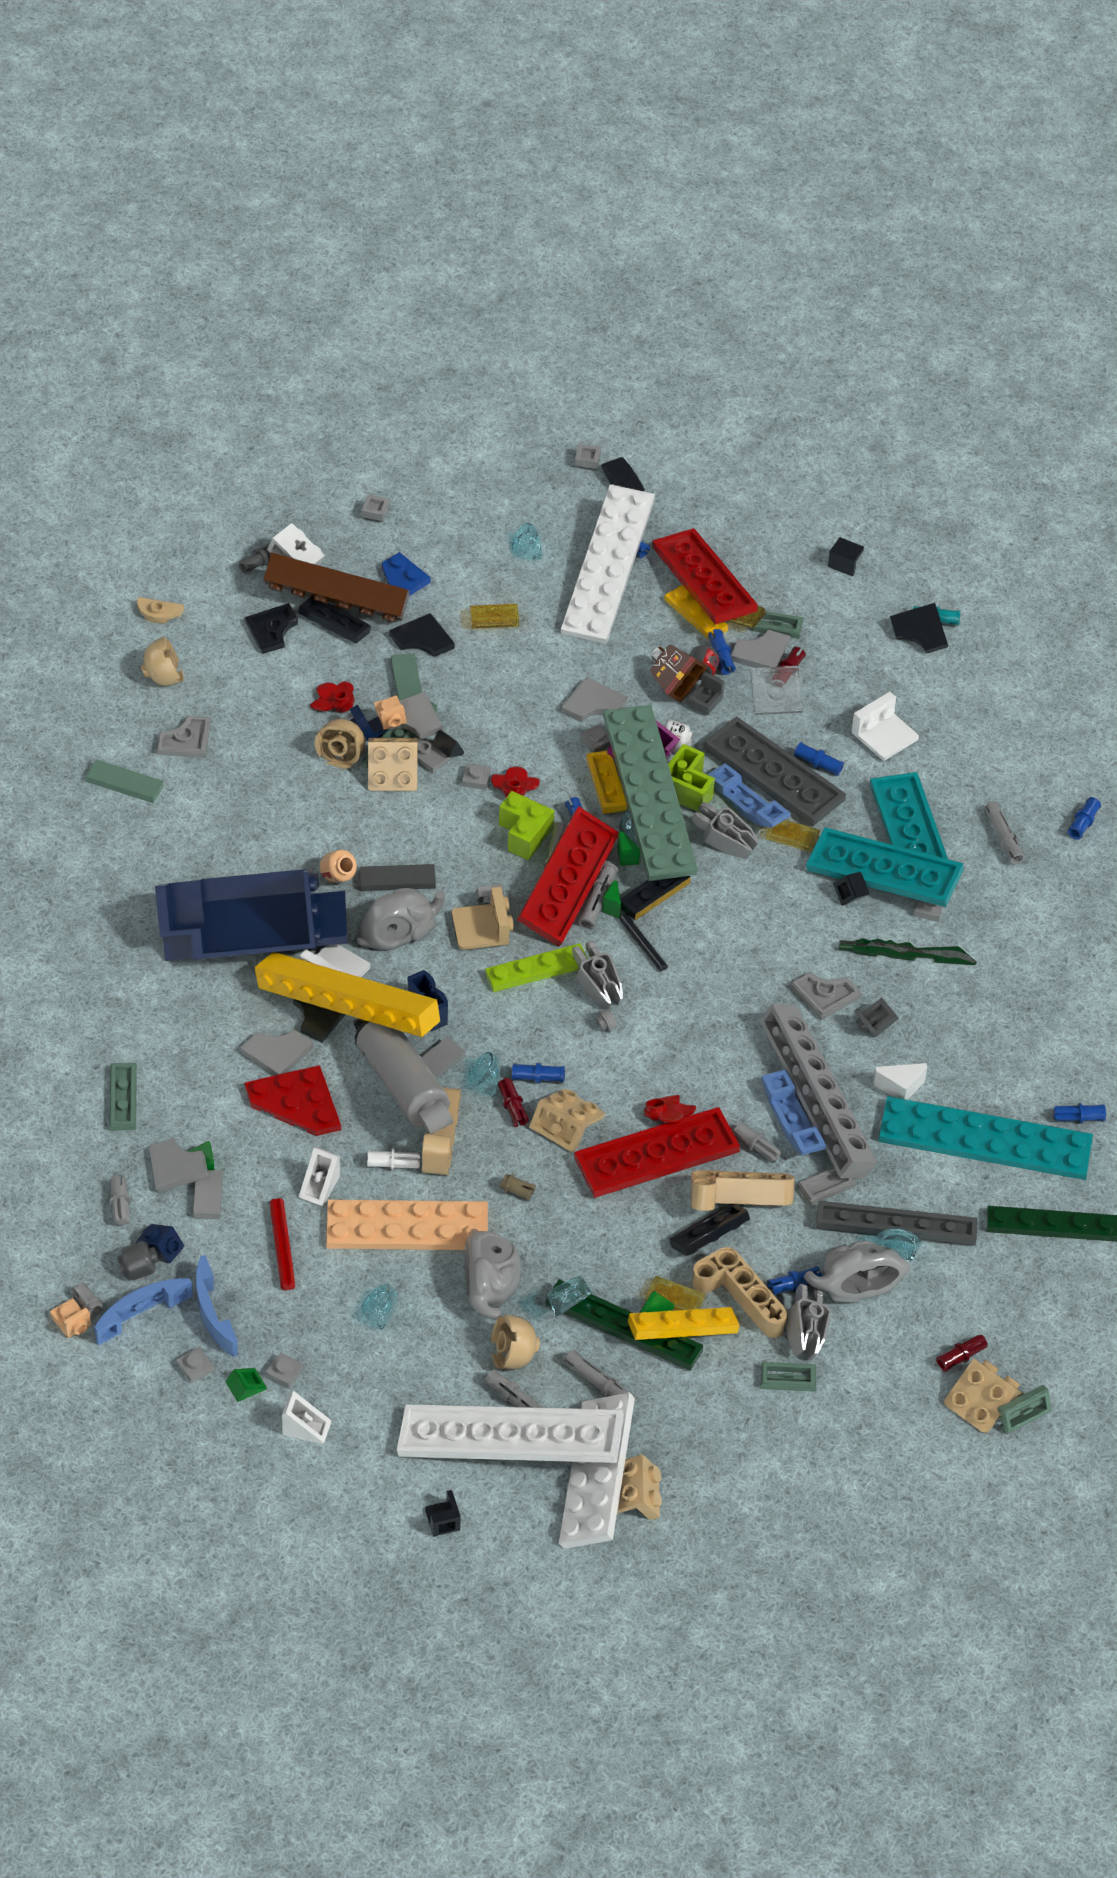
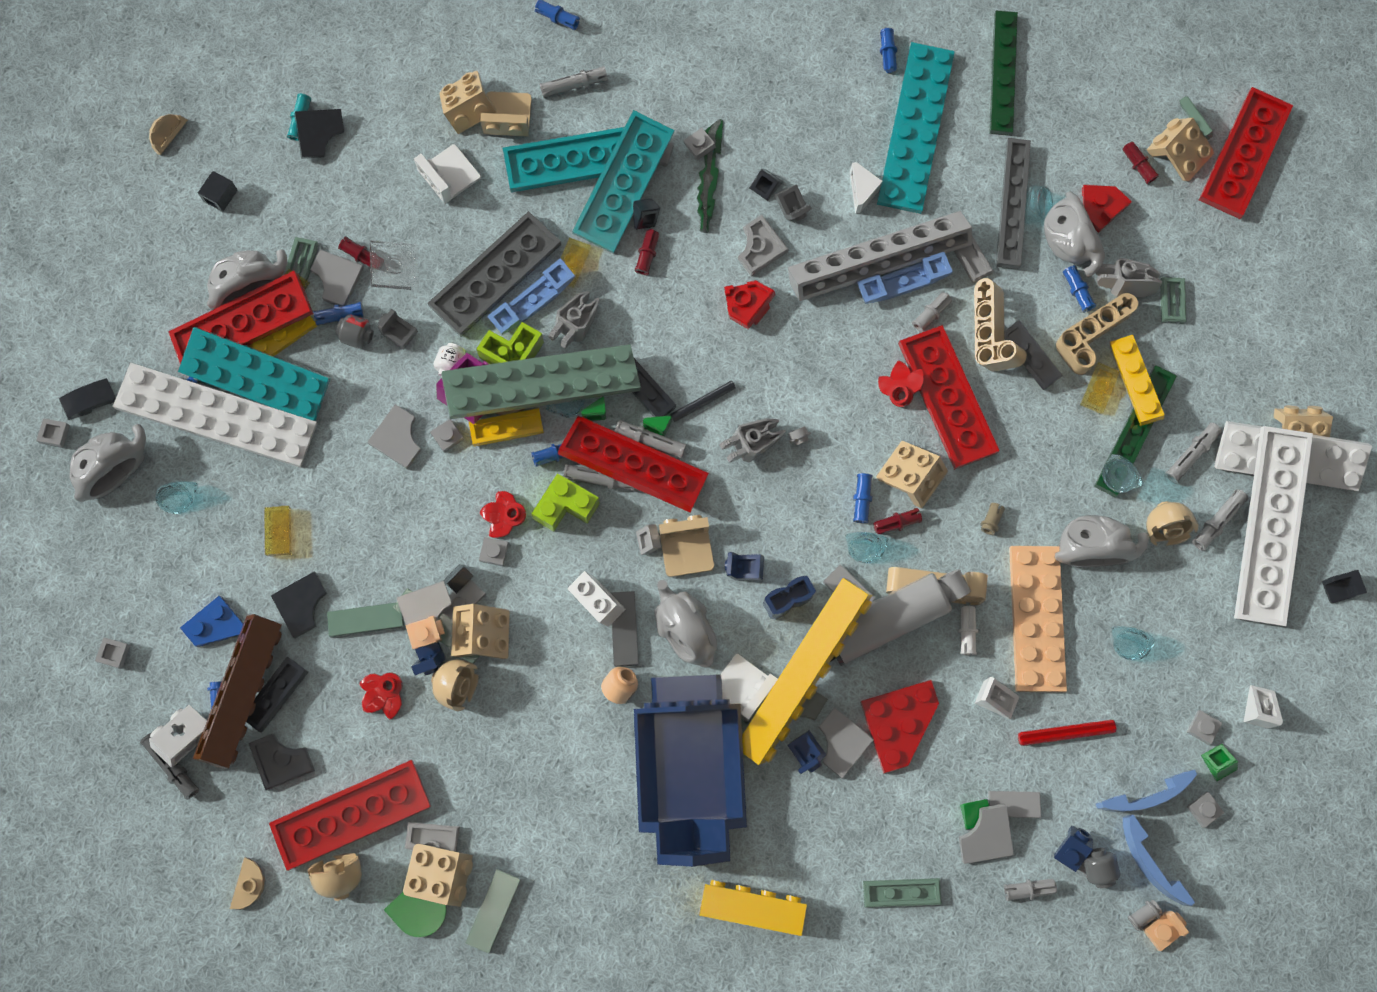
camera: 90 degrees left, 25 degrees up
(114, 971) = (752, 909): none -> yellow brick
(130, 727) = (416, 916): none -> green tile
(158, 738) = (438, 875): none -> tan bracket
(219, 676) = (349, 815): none -> red plate
(267, 1019) = (807, 752): none -> dark blue bracket
(425, 846) = (596, 599): none -> white brick
(461, 967) = (744, 566): none -> dark blue bracket
(532, 968) = (735, 499): lime plate -> none
(556, 490) = (106, 463): none -> light grey piece
(650, 588) = (254, 374): none -> teal plate
(657, 1303) = (1119, 403): green slope -> none
(676, 671) = (369, 354): reddish brown torso -> none
(754, 978) = (748, 302): none -> red plate
(755, 574) = (242, 274): none -> light grey piece
(807, 895) = (647, 252): none -> dark red axle
(819, 758) = (480, 233): blue pin -> none
(902, 1000) = (765, 184): none -> black slope
(903, 1313) = (1103, 204): none -> red plate
(910, 516) = (164, 130): none -> tan plate
(942, 940) = (699, 143): none -> light grey plate
(957, 777) = (511, 115): none -> tan bracket
(959, 737) = (465, 102): none -> tan bracket
(986, 1461) = (1245, 153): none -> red plate

